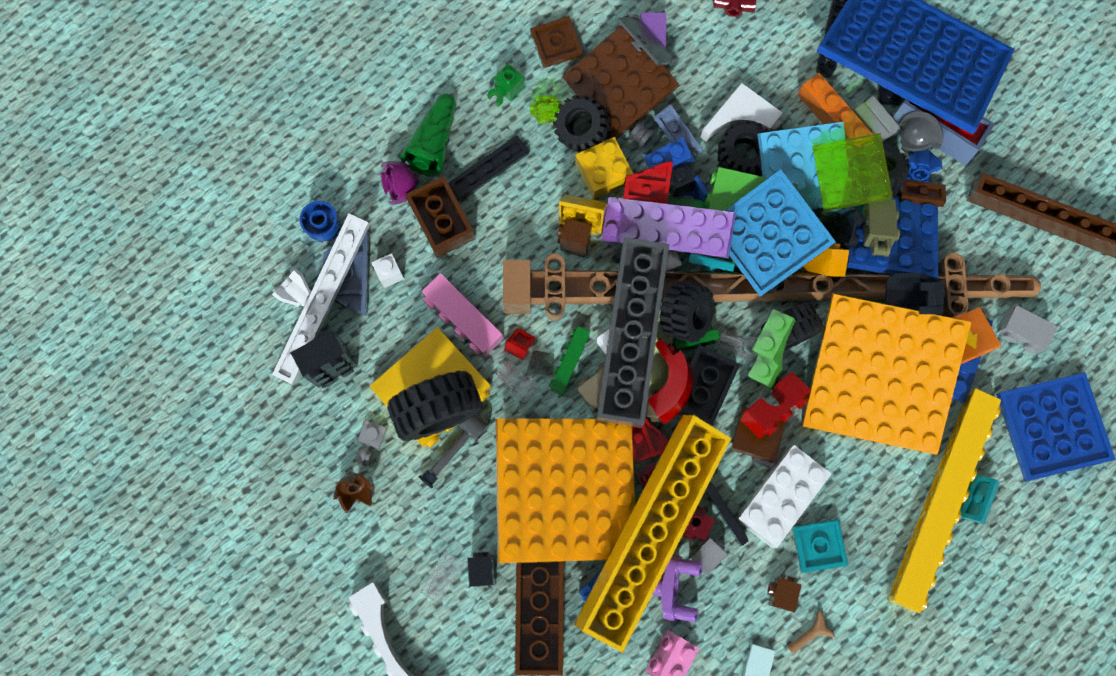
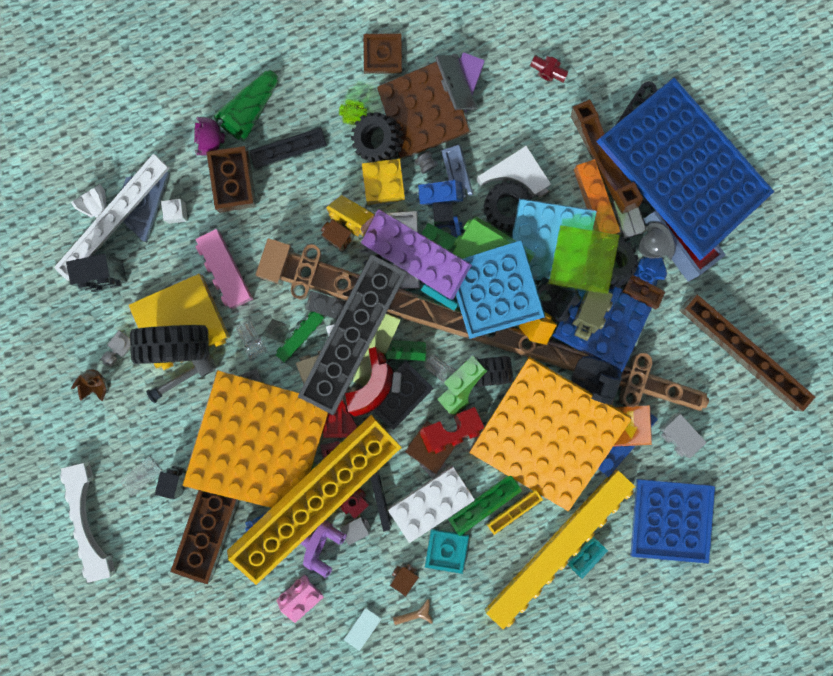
camera: 15 degrees right, 10 degrees up
(312, 213) = (123, 143): blue piece -> none
(507, 83) = (327, 79): green brick -> none
(519, 343) = (264, 307): red slope -> none
(589, 314) = (324, 305): none -> dark grey plate
(649, 184) = (414, 210): red wing -> none
(687, 311) = (402, 332): black tyre -> none
(698, 368) = (396, 382): none -> flat silver tile
(842, 478) = (484, 505): none -> green plate
(863, 93) = (589, 127): none -> reddish brown arch
(878, 475) = (514, 511): none -> yellow piece

